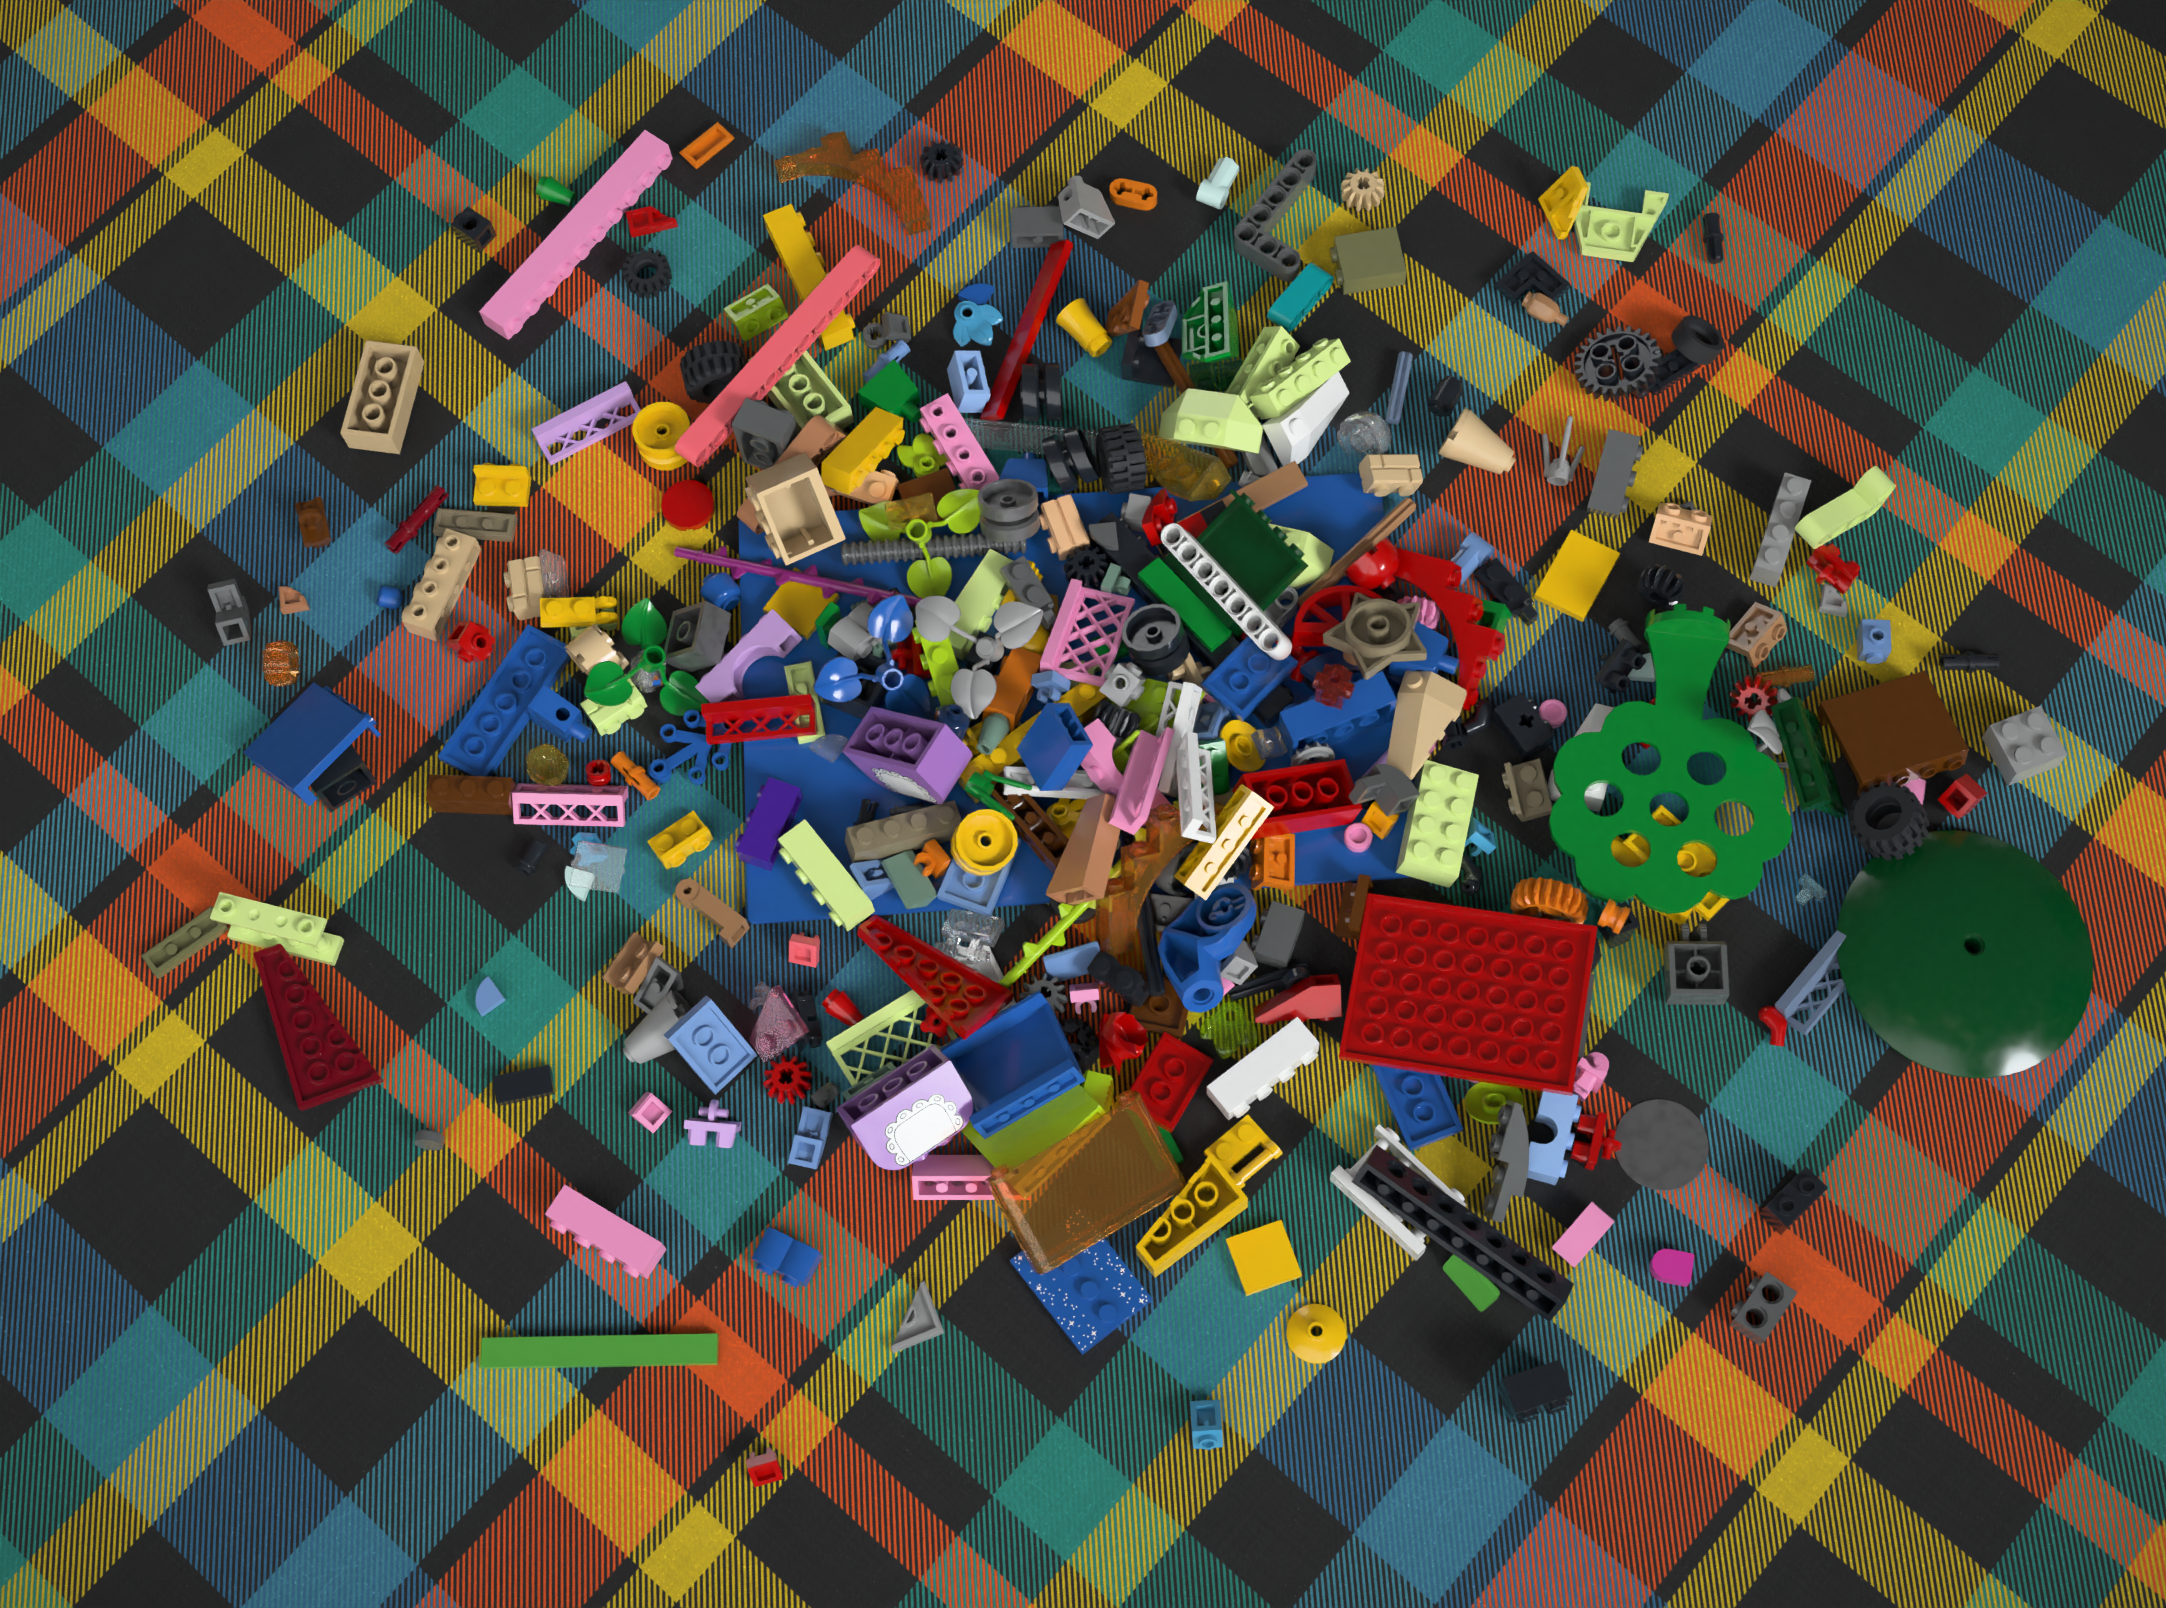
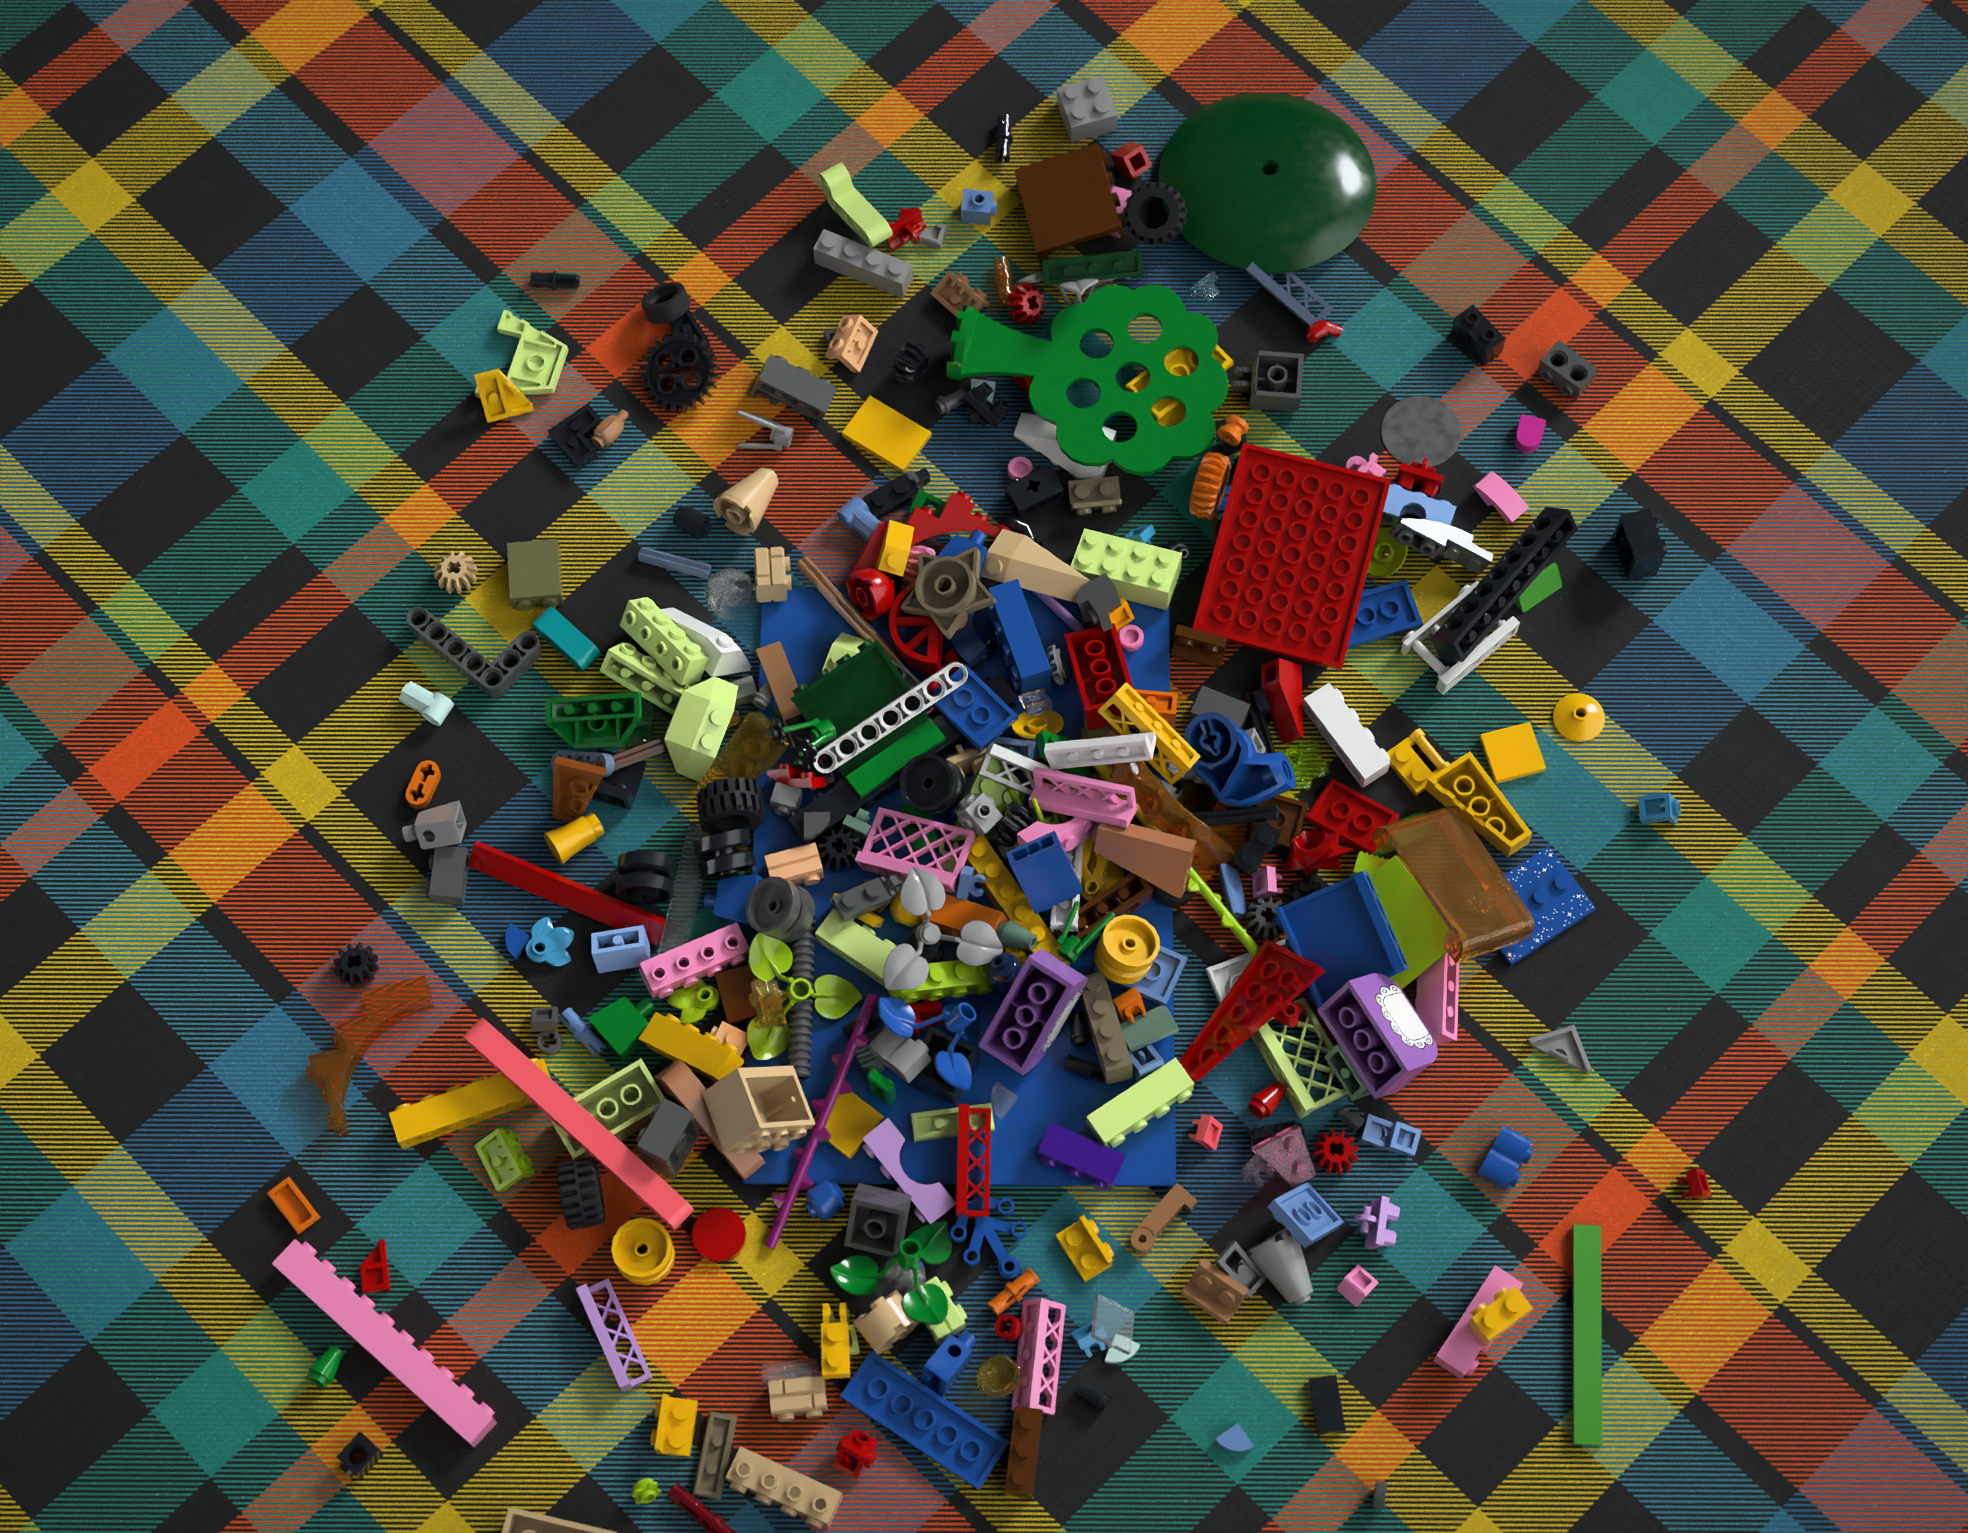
camera: 90 degrees left, 0 degrees up
(439, 466) = (645, 1491): none -> lime plate
(600, 1244) = (1499, 1316): none -> yellow brick
(645, 260) = (429, 1259): black tyre -> none
(971, 928) = (1197, 977): clear plate -> none
(1203, 527) = (804, 750): none -> plant
(1333, 686) = (1006, 624): clear red brick -> none
(1422, 580) = (895, 548): none -> yellow slope

